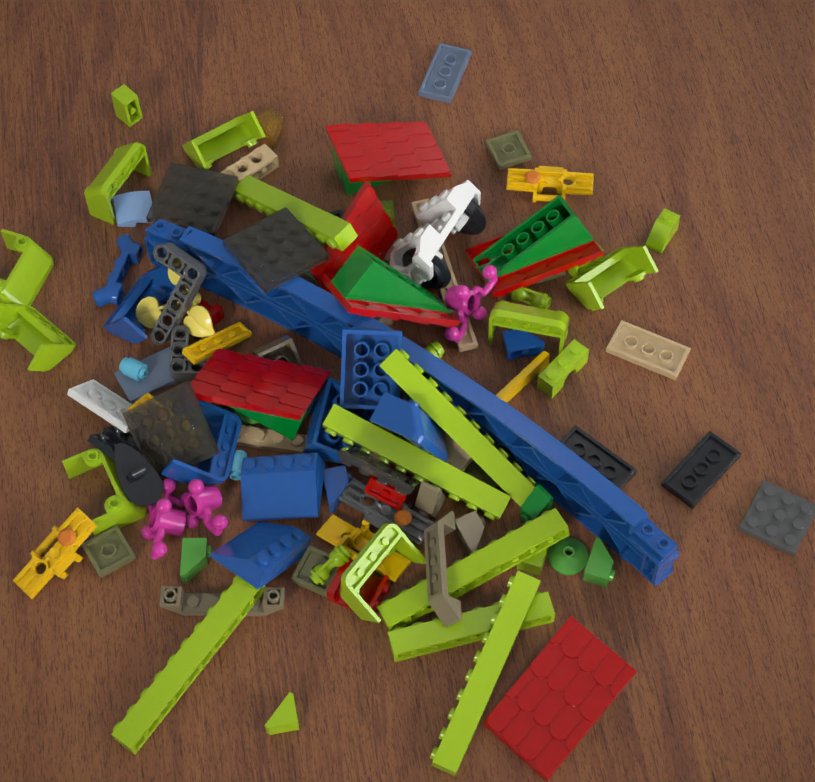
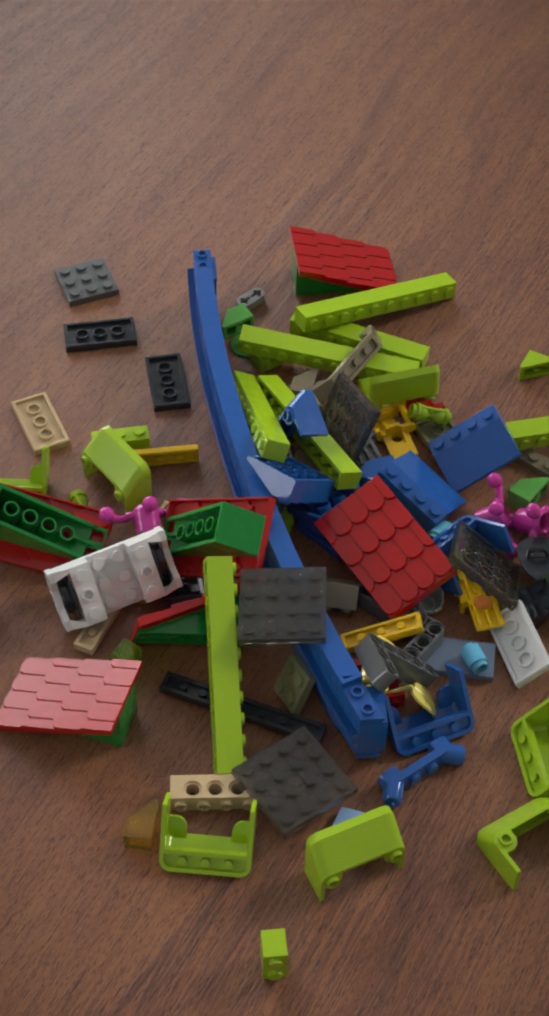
camera: 145 degrees left, 10 degrees down
(536, 504) = (244, 363): green slope -> none
(610, 606) = (252, 298): none -> light grey beam

